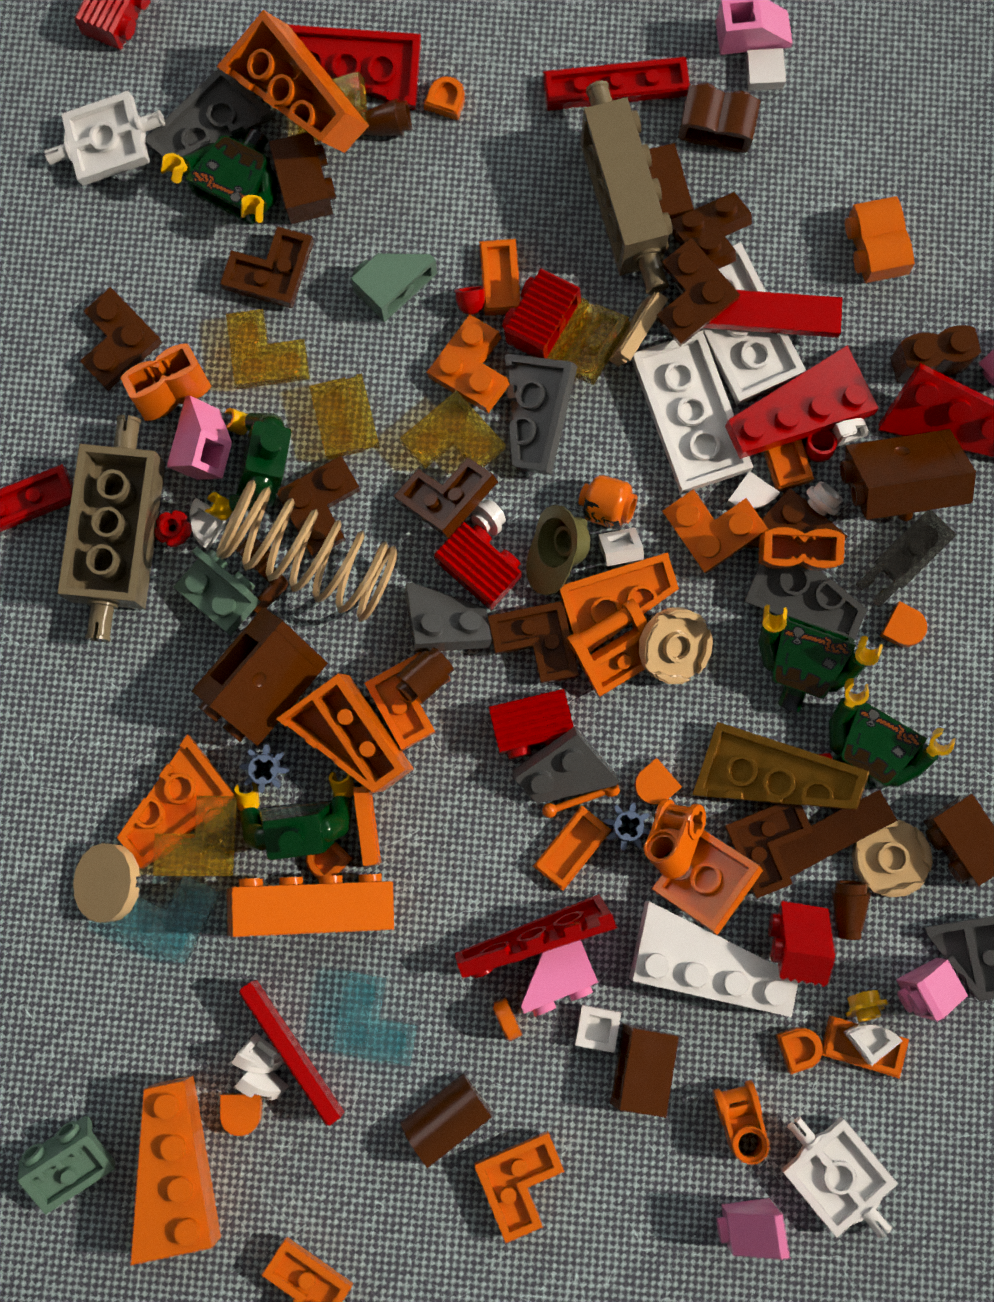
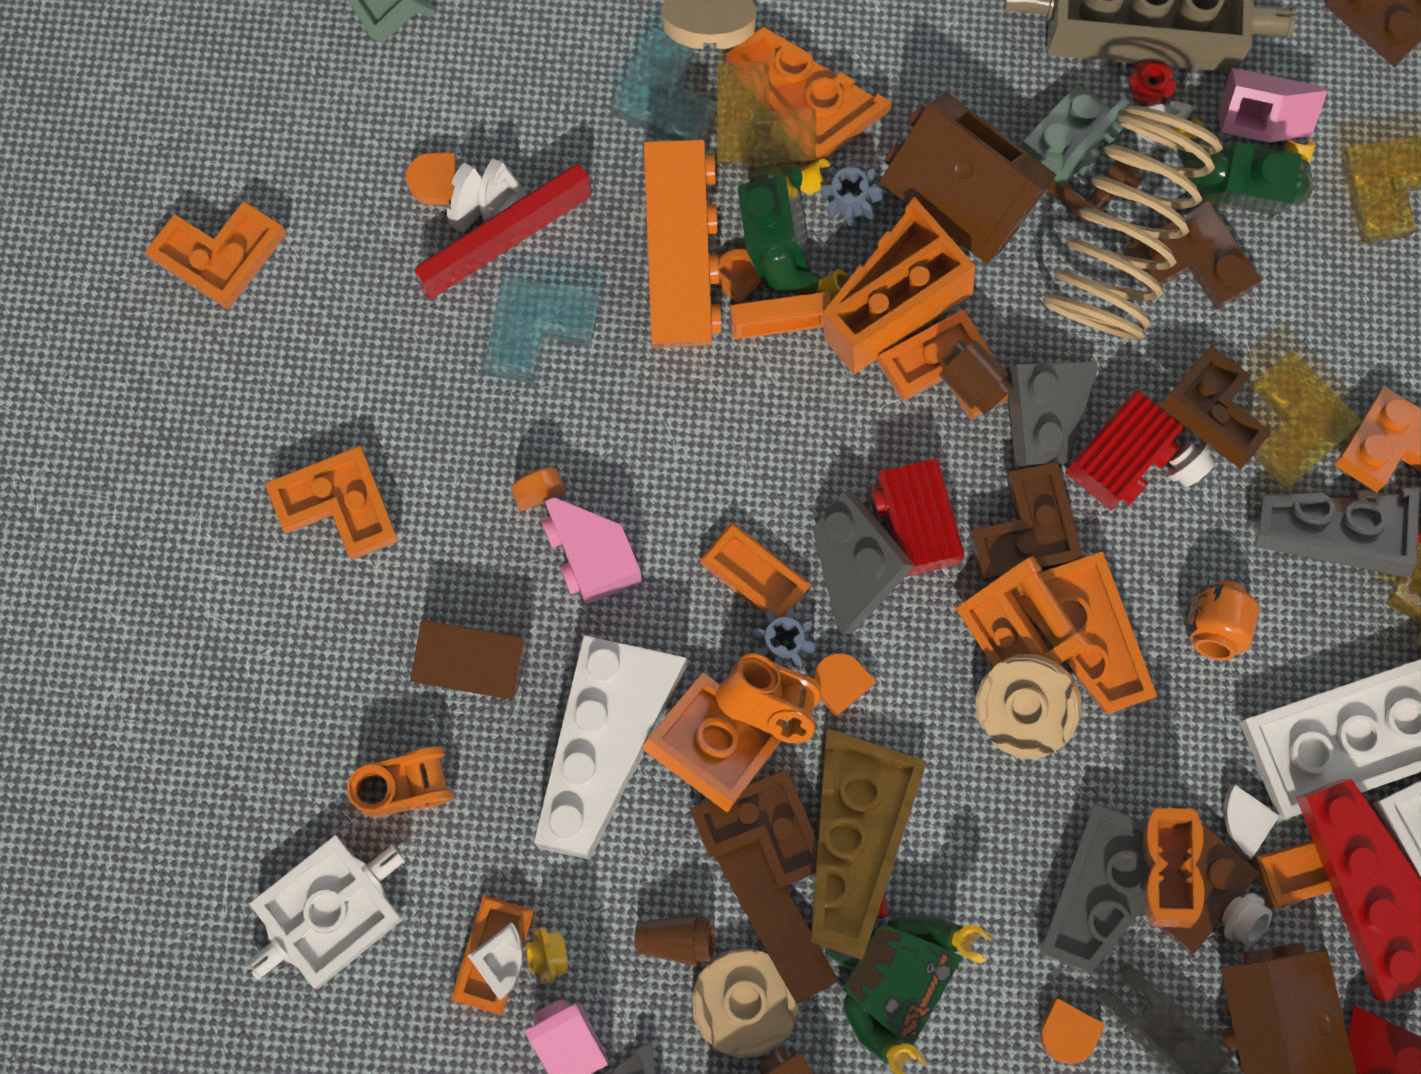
camera: 85 degrees right, 5 degrees down
(163, 383) = (1340, 56): orange brick -> none
(174, 1181) = (364, 100): orange wedge -> none
(344, 416) = (1314, 283): clear yellow plate -> none
(445, 1120) = (415, 415): reddish brown brick -> none
(541, 935) = (643, 528): red wing -> none
(550, 810) = (804, 545): orange hinge -> none
(556, 547) = (1155, 553): olive piece -> none
(597, 1028) = (524, 603): white tile -> none
(621, 546) = (1161, 637): white tile -> none
(713, 539) = (1181, 760): orange plate -> none
(753, 1229) = (266, 790): bright pink slope -> none
(799, 1048) = (492, 867): orange tile -> none
(802, 943) = (631, 860): red brick -> none
(809, 657) = (1021, 882): torso -> none
(821, 446) = (1322, 918): red hinge -> none
(850, 430) = (1348, 961): white tile -> none

